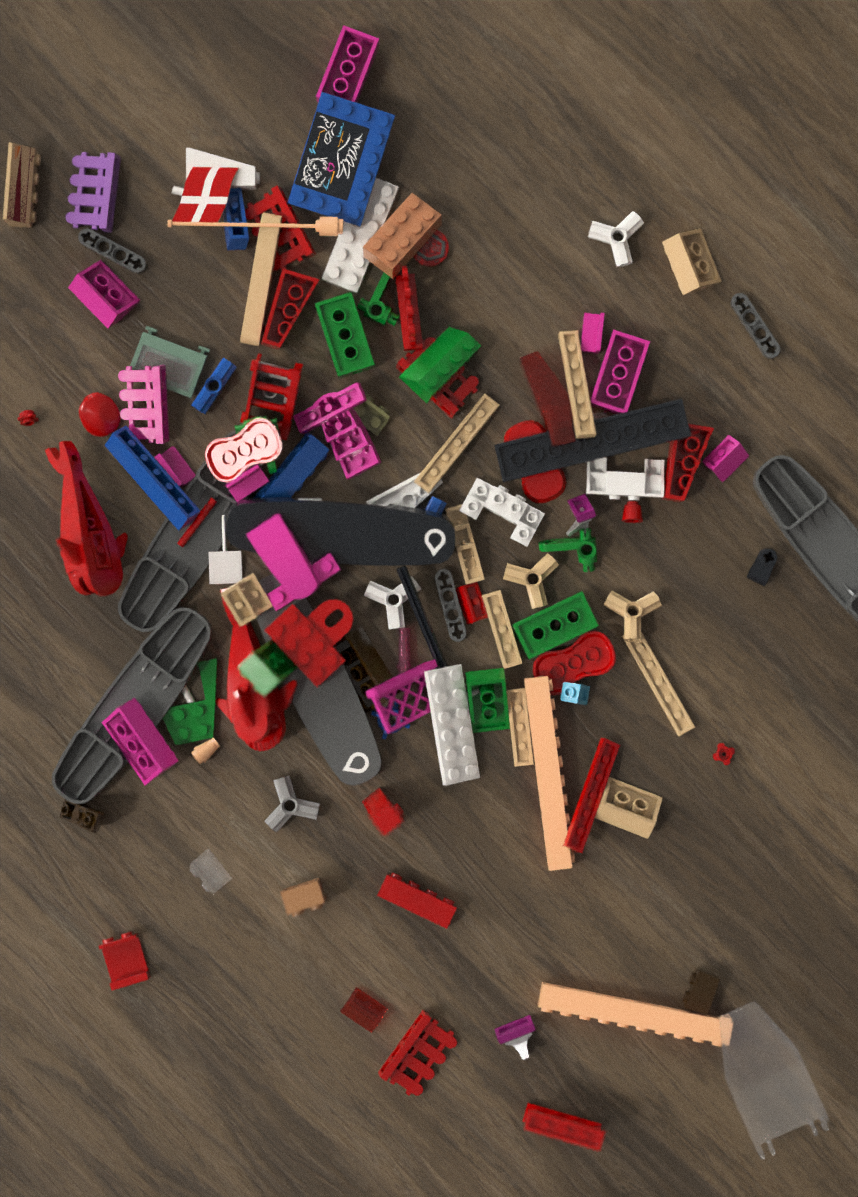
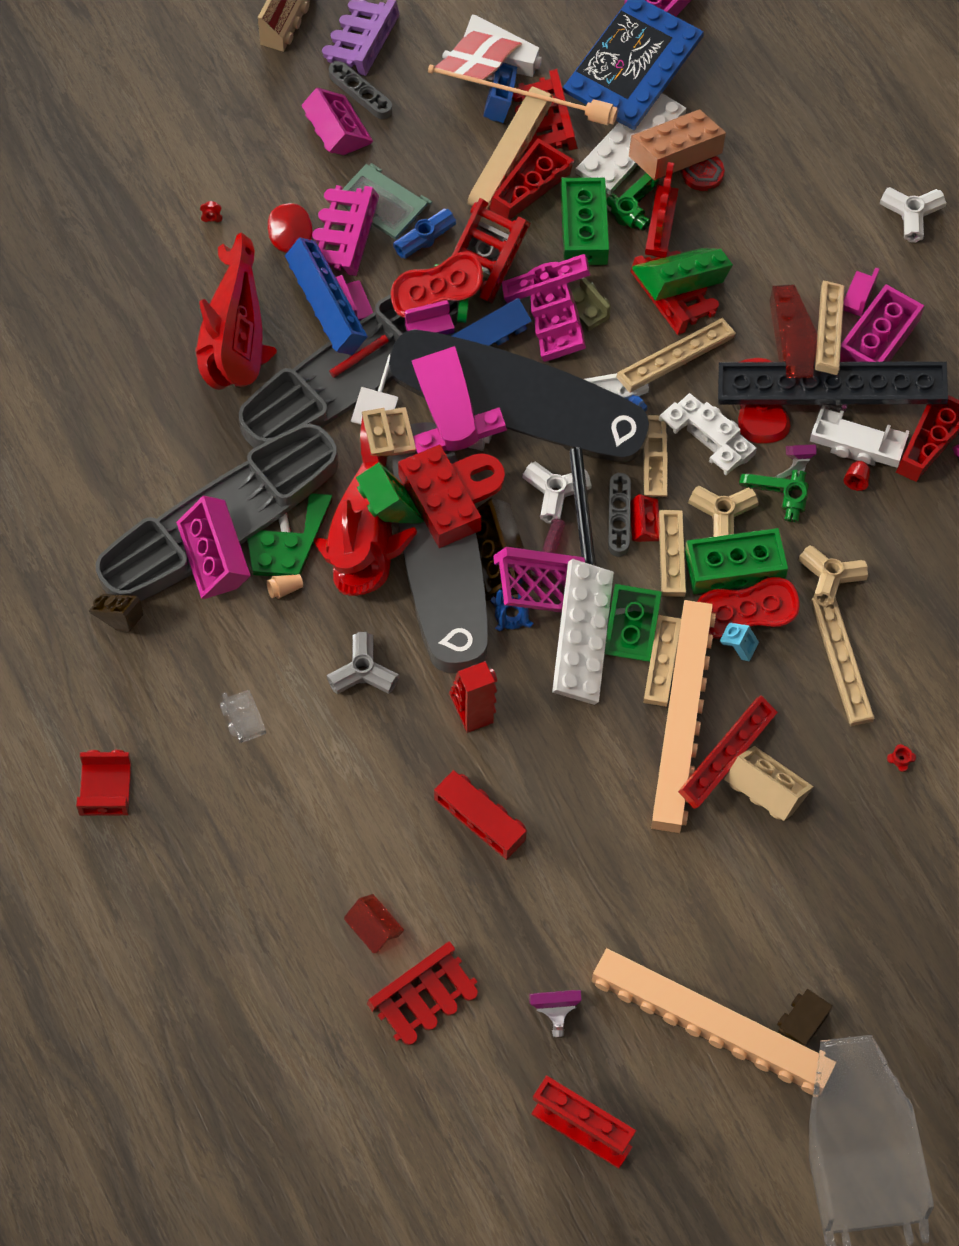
camera: 15 degrees right, 25 degrees down
(303, 896) = (344, 765): medium nougat brick -> none

